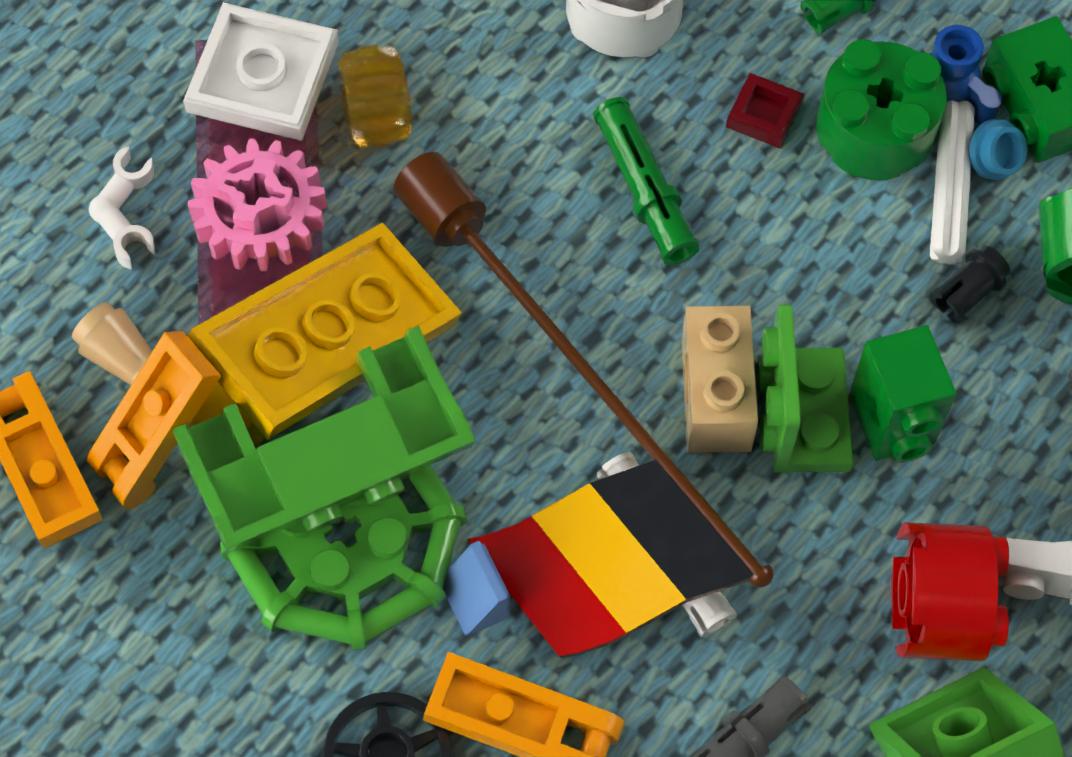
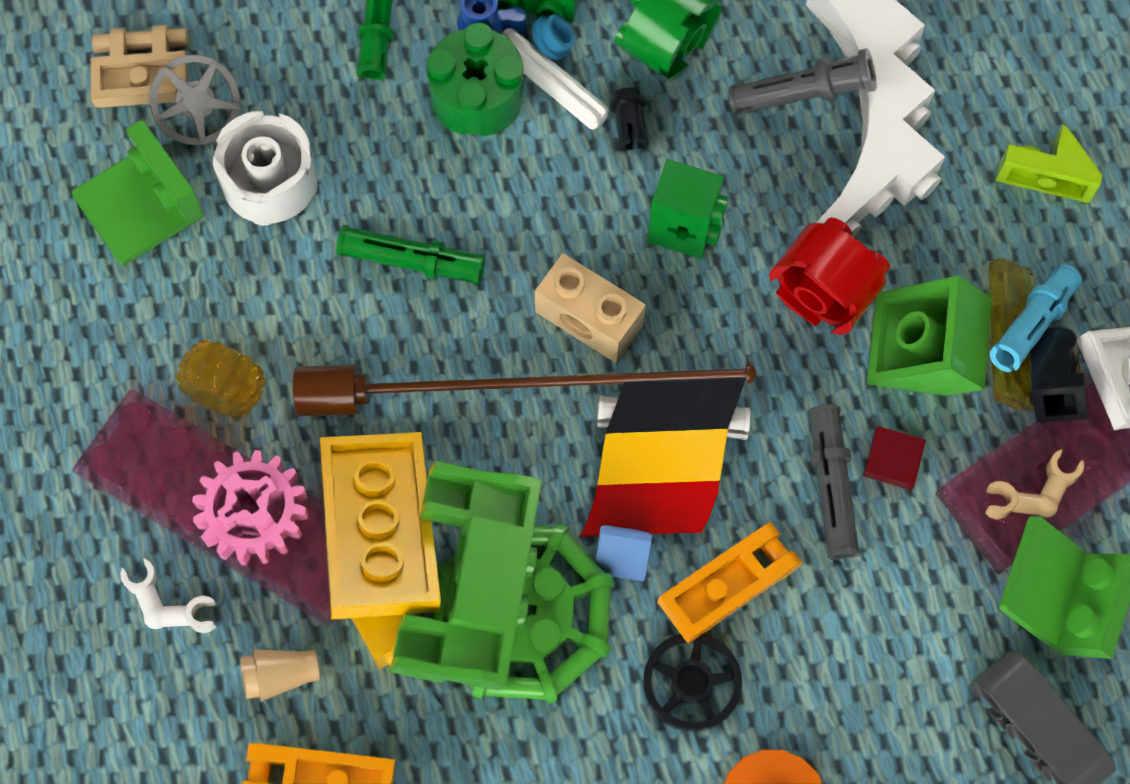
camera: 55 degrees left, 5 degrees up
(141, 428) = (362, 677): light orange plate -> none
(261, 71) = (144, 439): white plate -> none
(765, 110) = (415, 149): dark red tile -> none
(805, 402) = (640, 269): bright green bracket -> none

